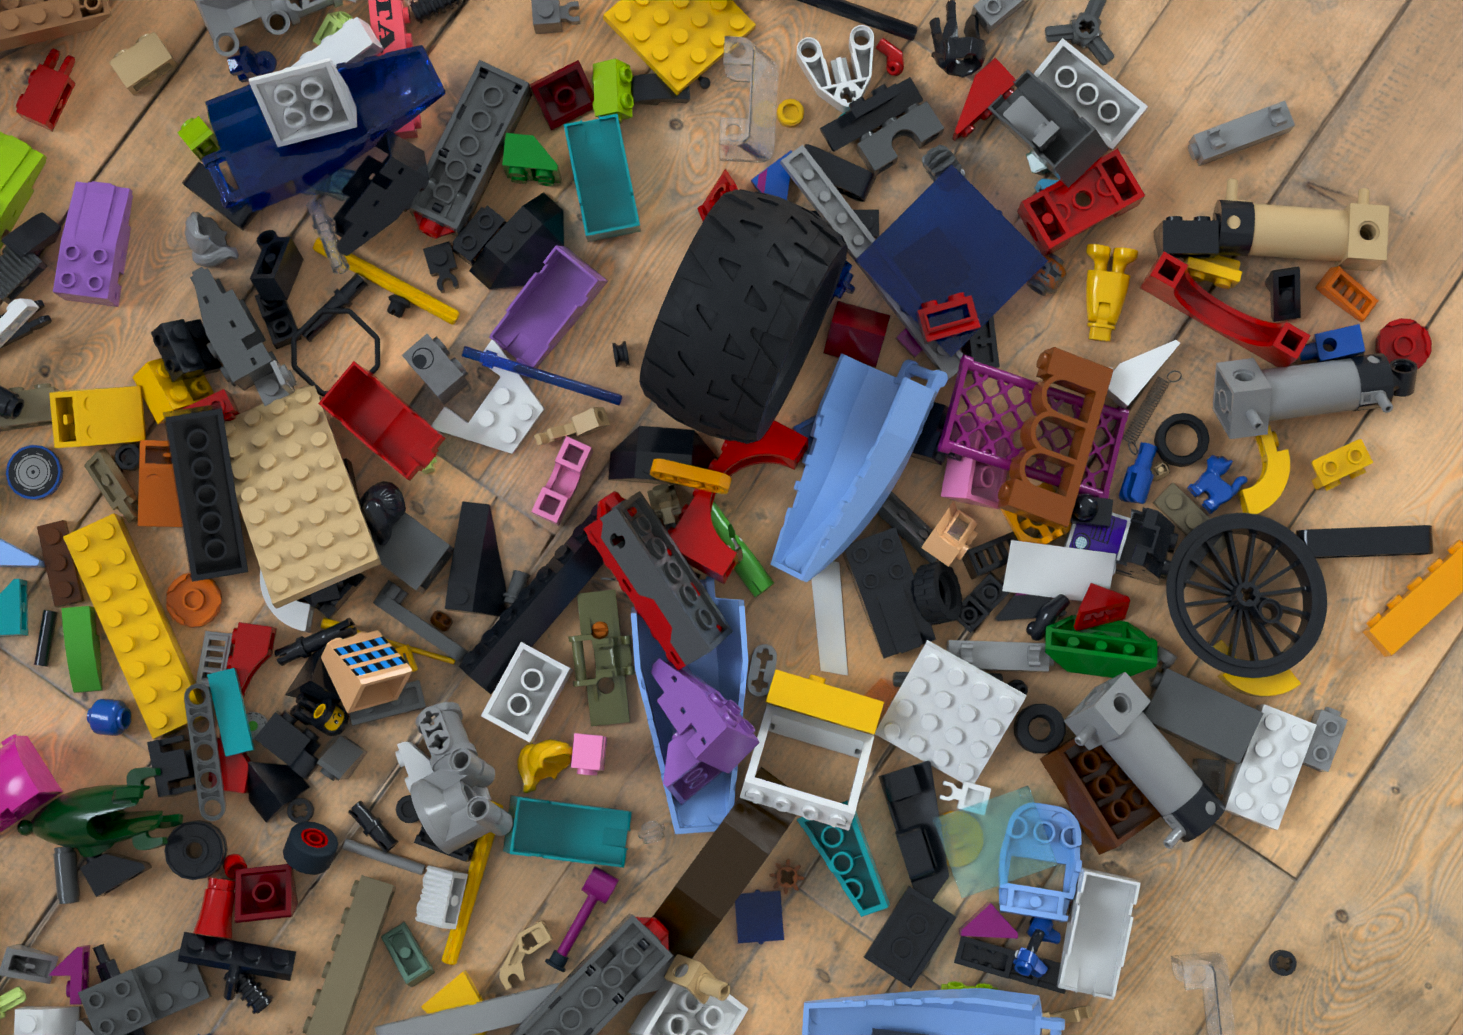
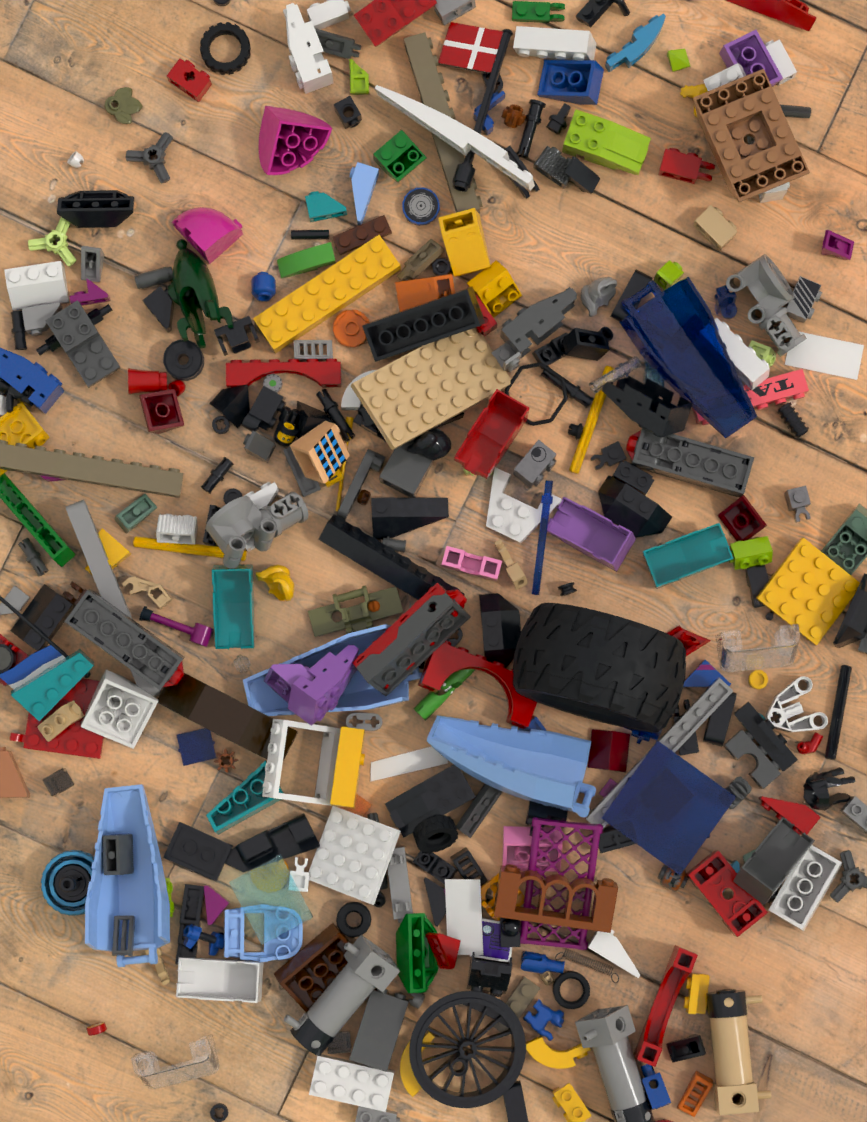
camera: 80 degrees right, 0 degrees up
(94, 244) = (583, 218): medium lavender piece -> none
(185, 349) = (520, 292): black plate -> none
(202, 766) = (239, 355): dark grey beam -> none
(230, 712) = (278, 367): teal tile -> none
(236, 958) = (116, 400): black plate -> none
(252, 992) = (97, 411): black piece -> none
(305, 102) = (701, 344): white slope -> none
(310, 848) = (196, 436): black wheel -> none
(387, 858) = (197, 489): light grey bar -> none
(526, 692) = (323, 563): white slope -> none
(528, 160) = (691, 500): green slope -> none
(588, 753) = (287, 612): bright pink arch -> none
(664, 502) = (467, 635): dark tan hinge -> none
(690, 476) = (487, 650): light orange beam -> none
(697, 980) = (146, 710): tan bracket -> none
(950, 329) = (619, 813): red window -> none
(951, 536) = (476, 836): light nougat window -> none
(1032, 123) = (775, 849): light grey bracket -> none
(1047, 616) = (432, 913): black arm -> none
(1106, 289) = (668, 921): yellow piece -> none
(1187, 237) = (712, 972): black slope -> none
(1240, 133) = (797, 1000): light grey brick -> none

